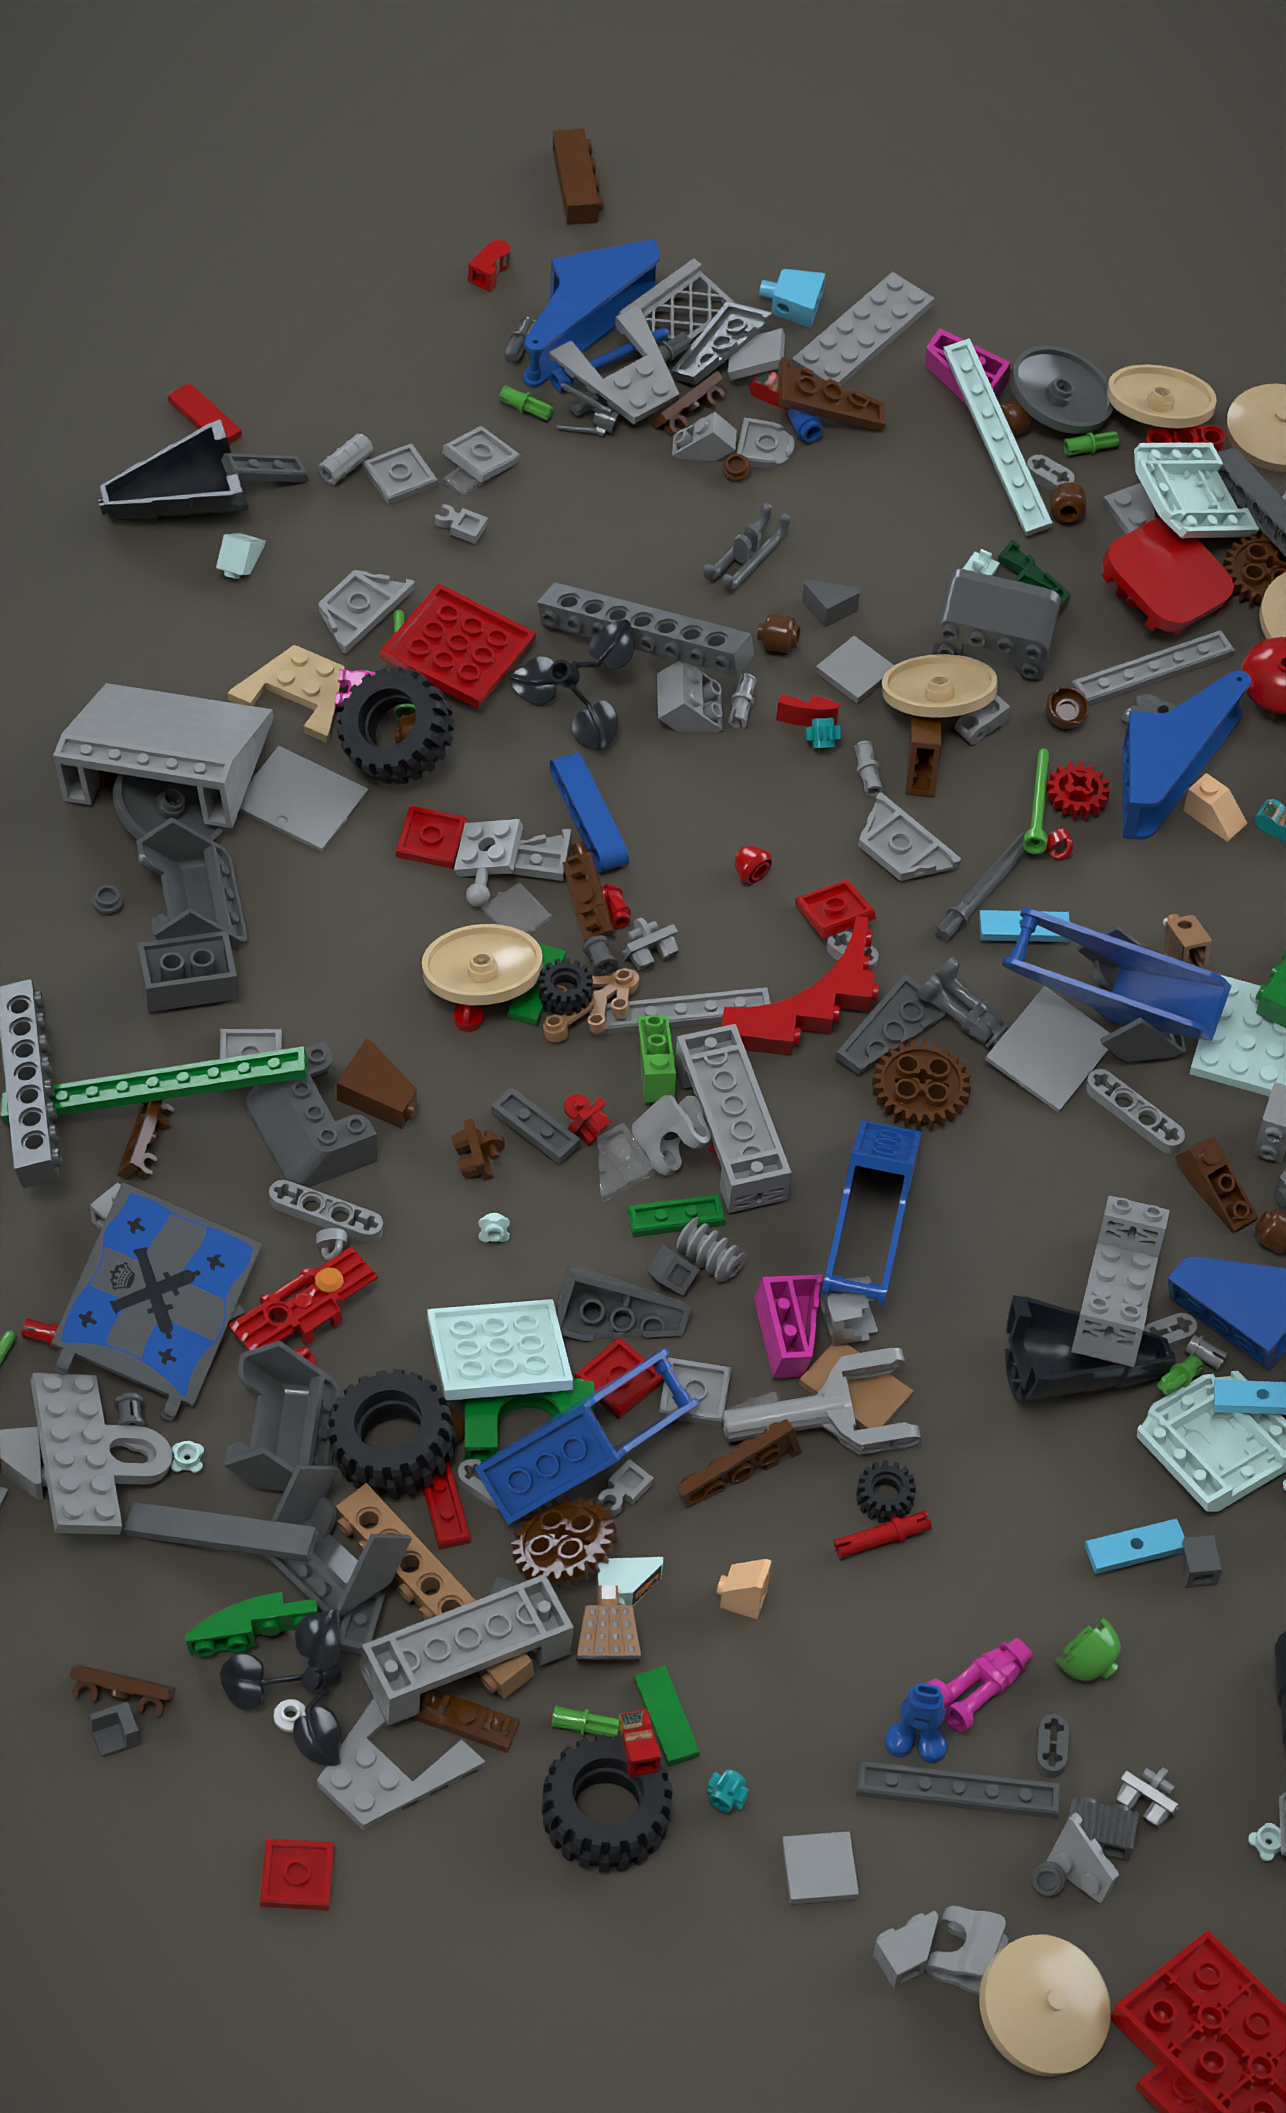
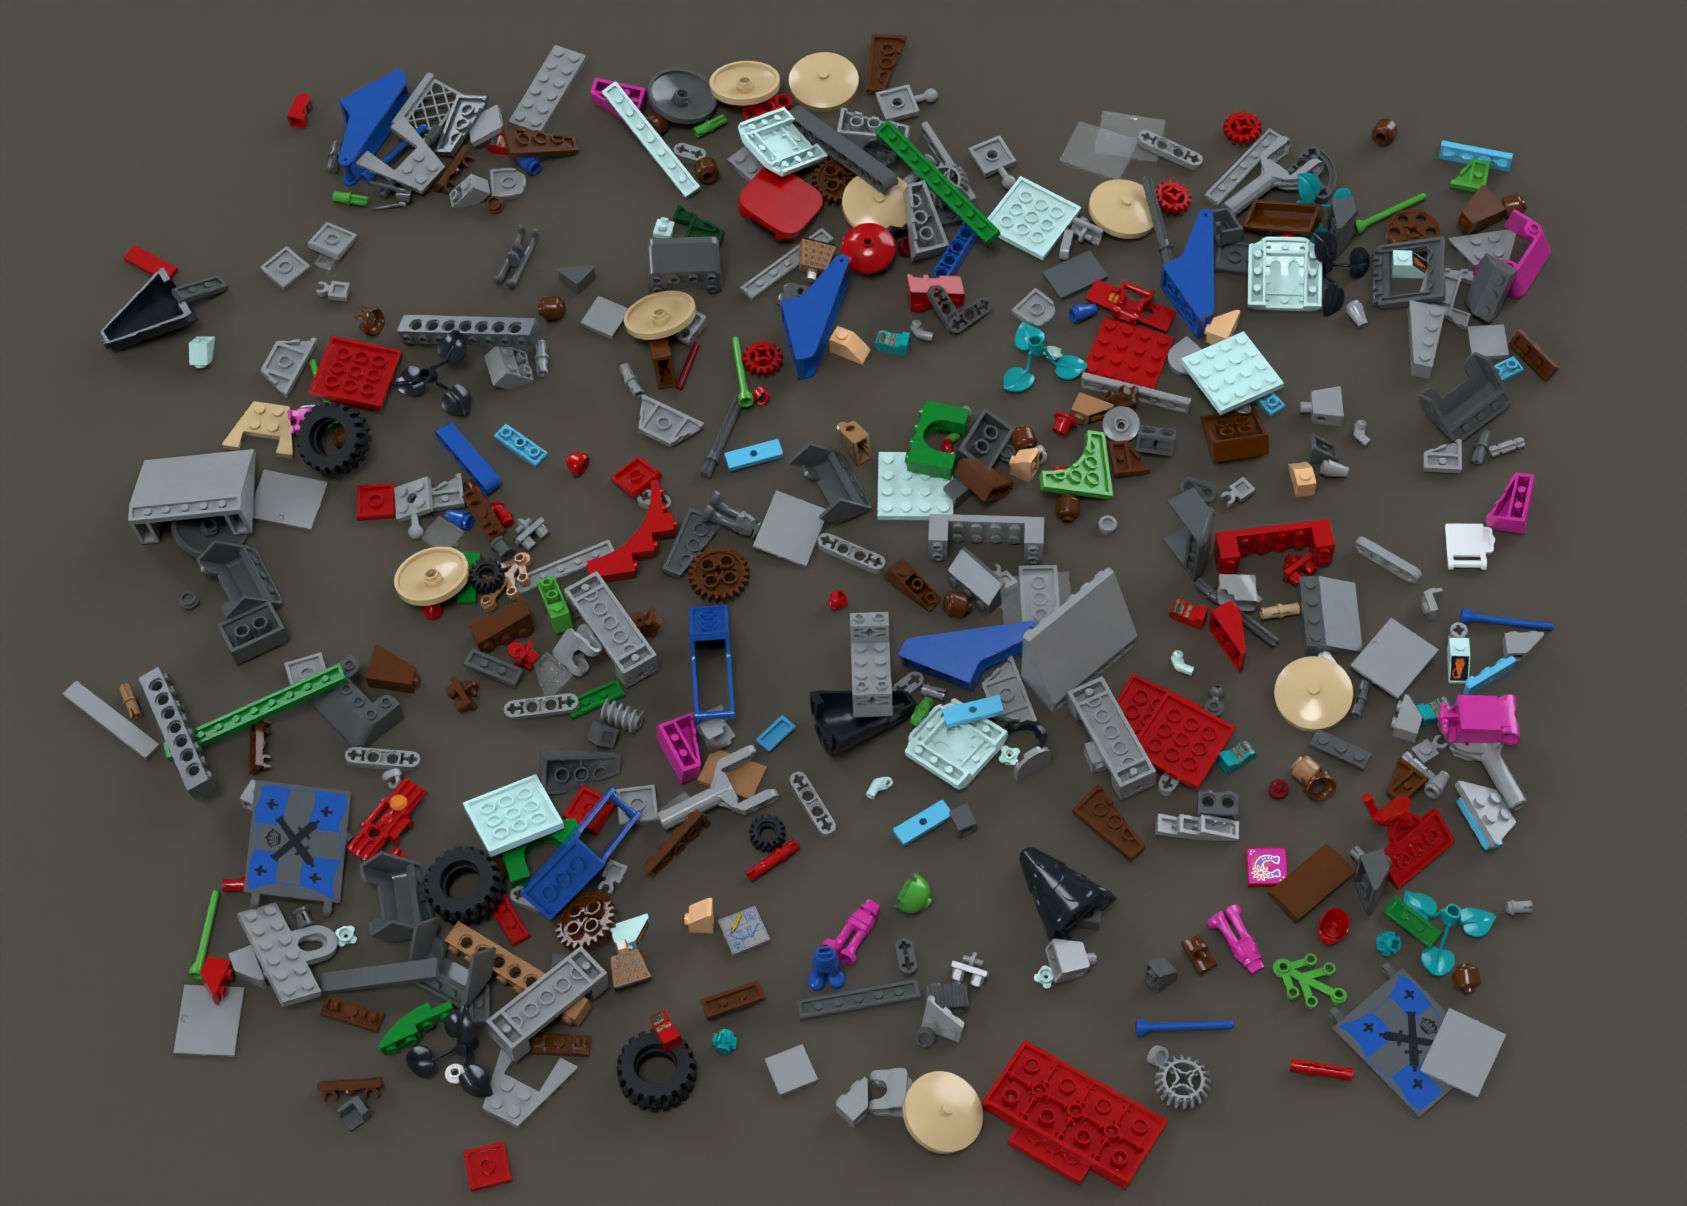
camera: 10 degrees left, 5 degrees up
(160, 1578) = (352, 1014): none -> reddish brown plate
(345, 459) = (248, 268): light grey axle -> none
(494, 1228) = (487, 740): light aqua plate -> none
(504, 584) = (373, 322): none -> reddish brown piece
(550, 895) = (461, 519): none -> blue cone
(568, 1068) = (502, 627): none -> reddish brown wedge
(576, 177) = (337, 36): reddish brown brick -> none
(584, 1722) = (629, 1025): bright green axle -> none
(593, 1196) = (542, 706): none -> light grey beam
(666, 1716) = (676, 1007): green tile -> none
(673, 816) = (527, 451): none -> medium azure tile
(758, 1729) = (732, 1000): none -> reddish brown plate
(792, 1126) = (649, 624): none -> reddish brown hips
(795, 295) = (498, 78): medium azure torso -> none
(800, 713) = (590, 353): red slope -> none
(806, 1630) = (744, 931): none -> light grey tile
(823, 732) = (597, 365): teal gear -> none
(941, 1345) = (775, 733): none -> dark azure tile
(959, 772) = (687, 366): none -> dark red bar
(972, 1468) = (815, 803): none -> light grey beam
(1067, 707) = (741, 306): reddish brown hair -> none
(1081, 1468) = (878, 785): none -> light aqua arm
(1094, 1173) = (837, 599): none -> red tile
(1149, 985) = (838, 475): blue piece -> none
(1198, 666) = (814, 257): none -> medium nougat torso

